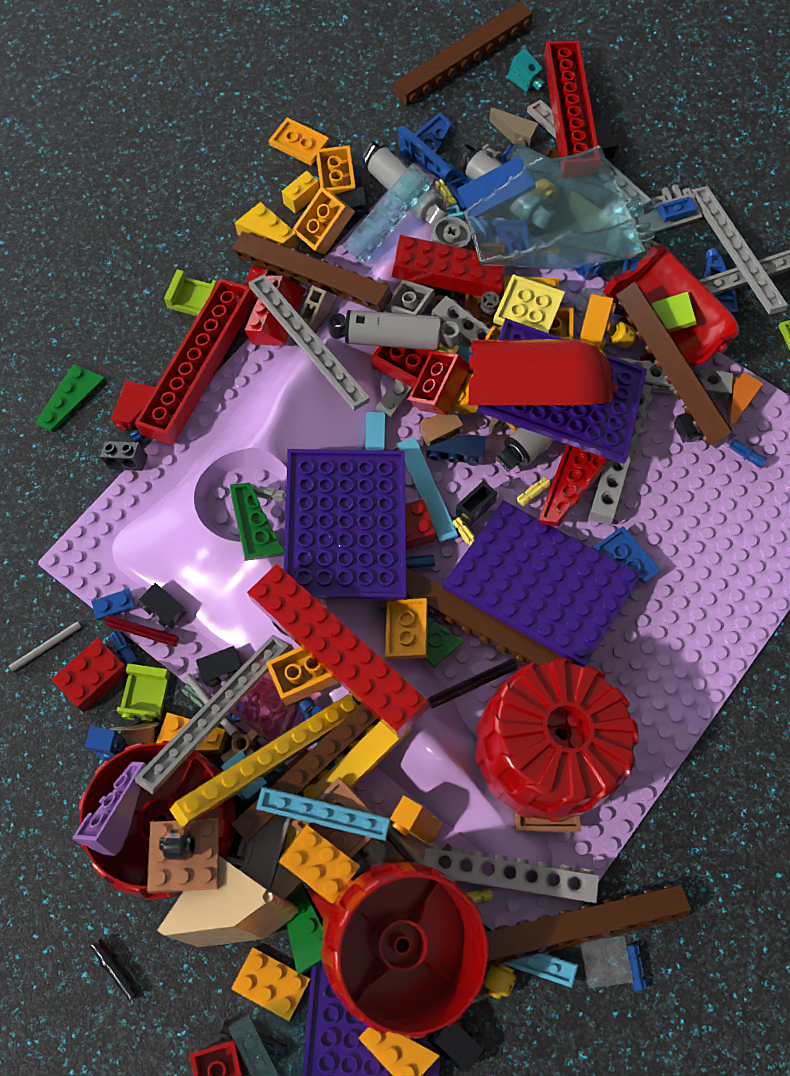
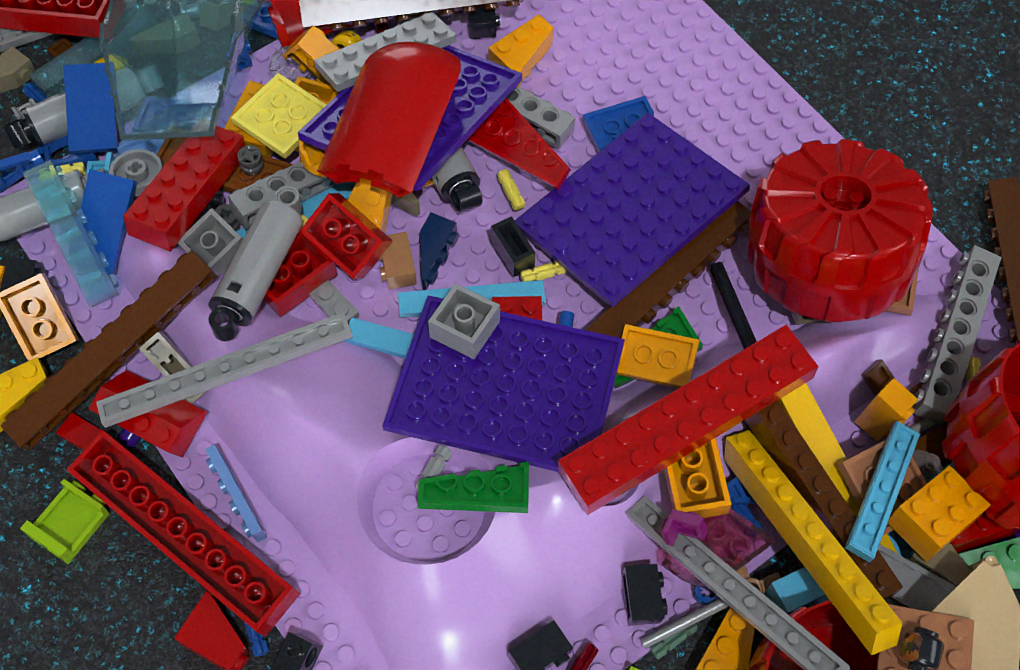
camera: 80 degrees left, 5 degrees down
(231, 383) = (239, 503): none -> medium blue plate
(258, 664) = (683, 523): none -> magenta bracket
(380, 476) = (464, 321): none -> light grey brick
(417, 224) = (104, 204): none -> blue tile
(448, 812) = (877, 376): none -> reddish brown tile
(627, 367) = (344, 65): none -> light grey plate
(670, 463) = (523, 46): none -> light orange wedge

